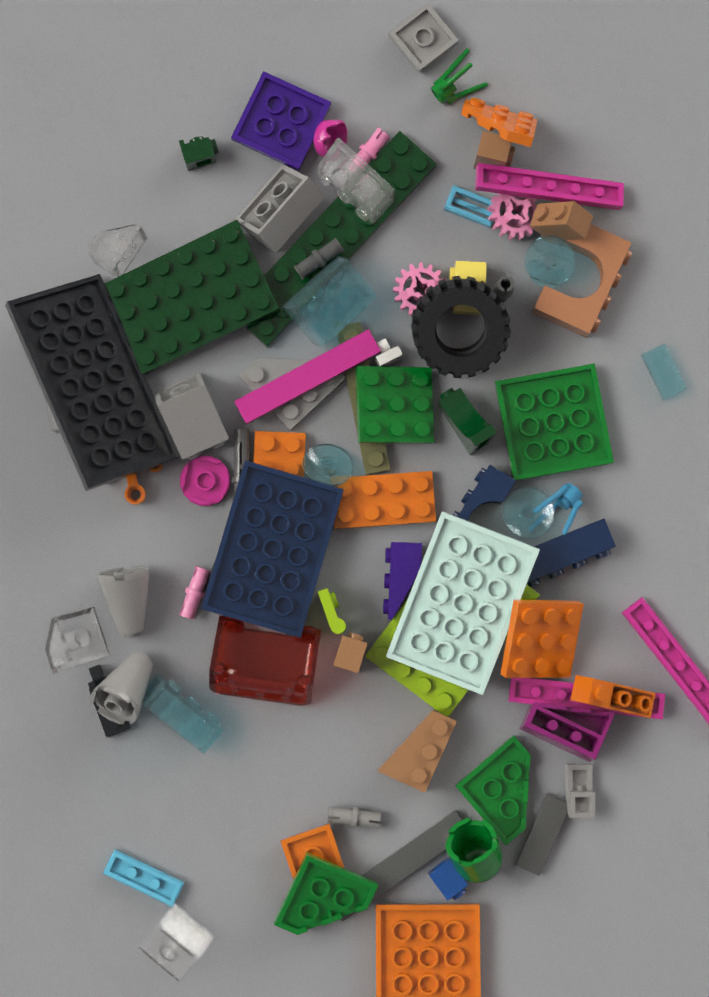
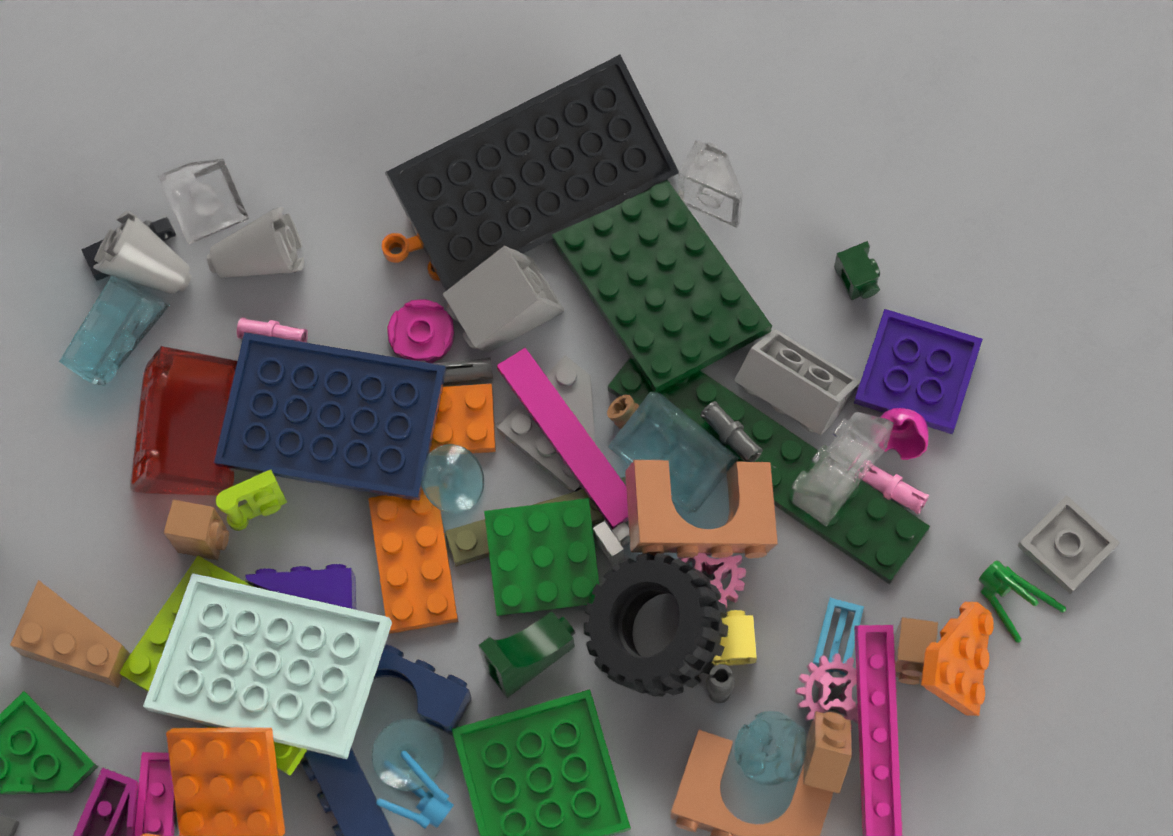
camera: 90 degrees right, 15 degrees down
(282, 337) = (622, 410): none -> medium nougat bush
(390, 316) = (660, 529): none -> nougat arch

